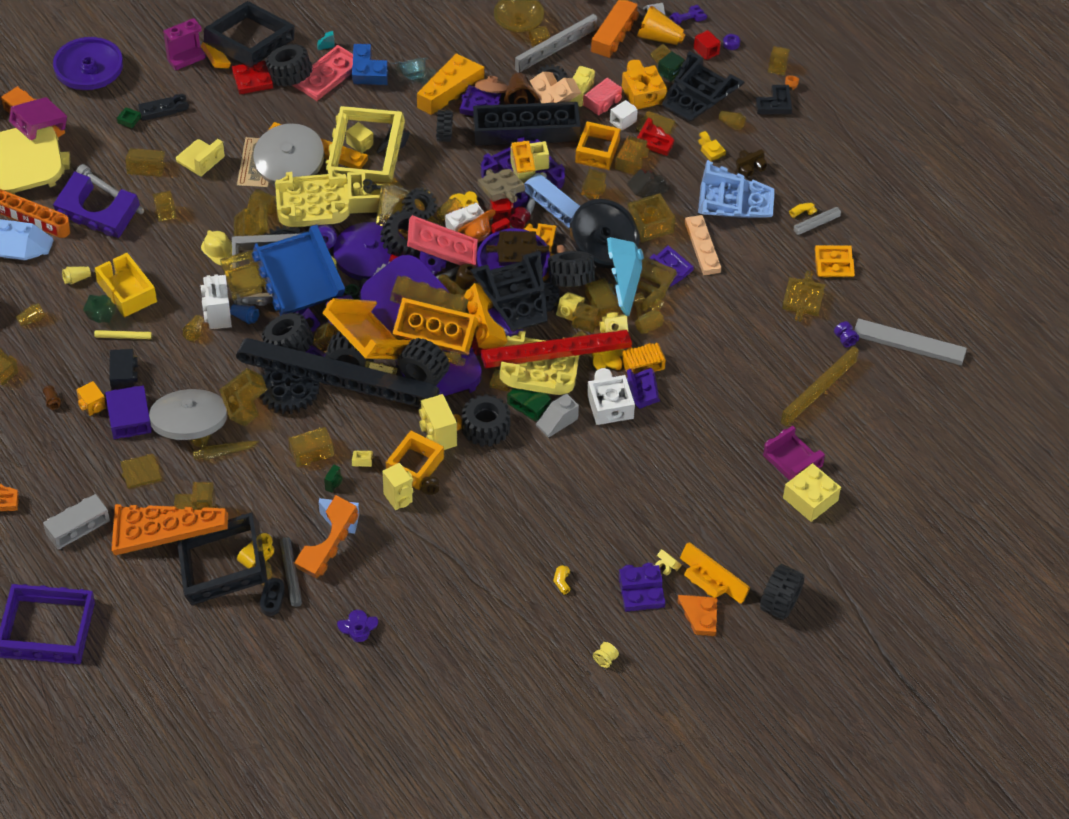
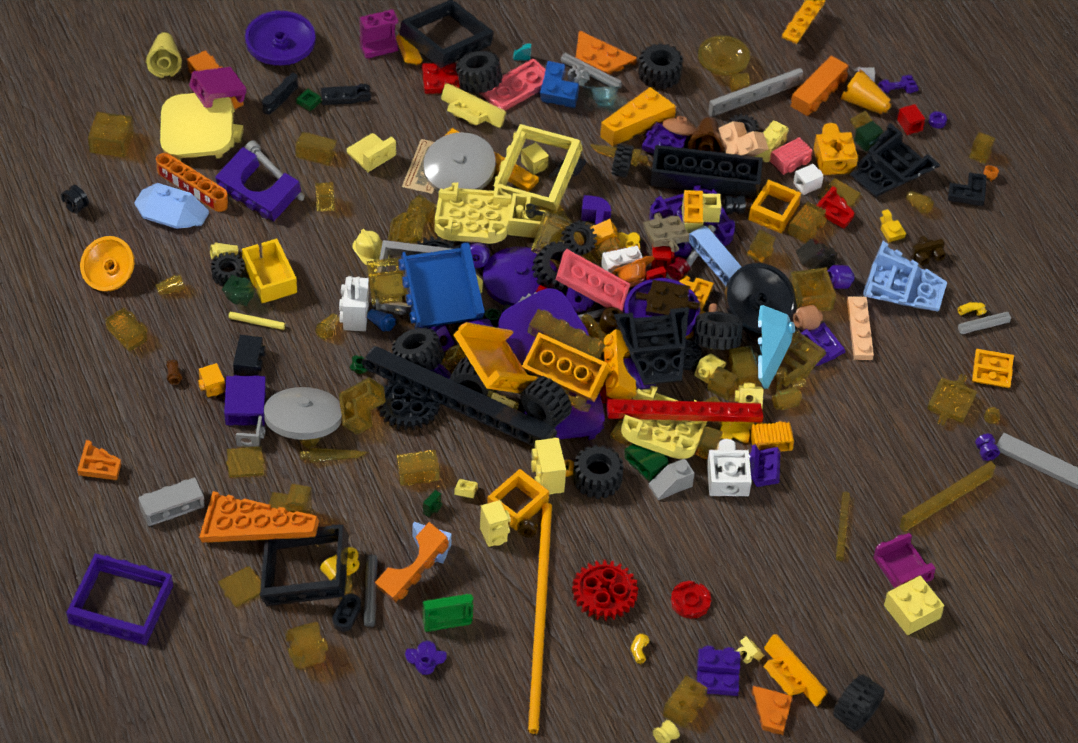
camera: 10 degrees right, 0 degrees up
(80, 283) = (225, 262): none -> black tyre
(99, 116) = (280, 94): none -> black hinge
(146, 446) = (255, 438): none -> light grey bracket
(163, 590) = (241, 586): none -> clear yellow piece
(231, 360) = (355, 366): none -> dark green plate
(239, 635) = (306, 645): none -> clear yellow brick
(288, 100) = (471, 108): none -> light yellow bracket
(371, 578) = (447, 612): none -> green container
(384, 52) = (578, 75): none -> light grey gear
(394, 48) = (593, 72): none -> light grey axle
(401, 33) = (602, 55): none -> orange wing
(430, 176) = (595, 209): none -> dark purple brick
(432, 120) = (610, 151): none -> clear yellow bar
(442, 194) = (604, 231): none -> light orange brick
(460, 569) = (539, 630): none -> light orange piece
(461, 32) = (660, 66): none -> black tyre
(517, 524) = (604, 590): none -> red gear
(560, 150) = (735, 204): none -> black wheel
(585, 372) = (708, 441): none -> clear yellow brick
(600, 525) = (690, 599): none -> red tile
(617, 622) = (685, 702): none -> clear yellow brick
(652, 243) = (807, 317): none -> nougat head
(675, 199) = (841, 276): none -> dark purple head
(728, 431) = (842, 526): none -> clear yellow bar
(846, 306) = (995, 415): none -> clear yellow hinge

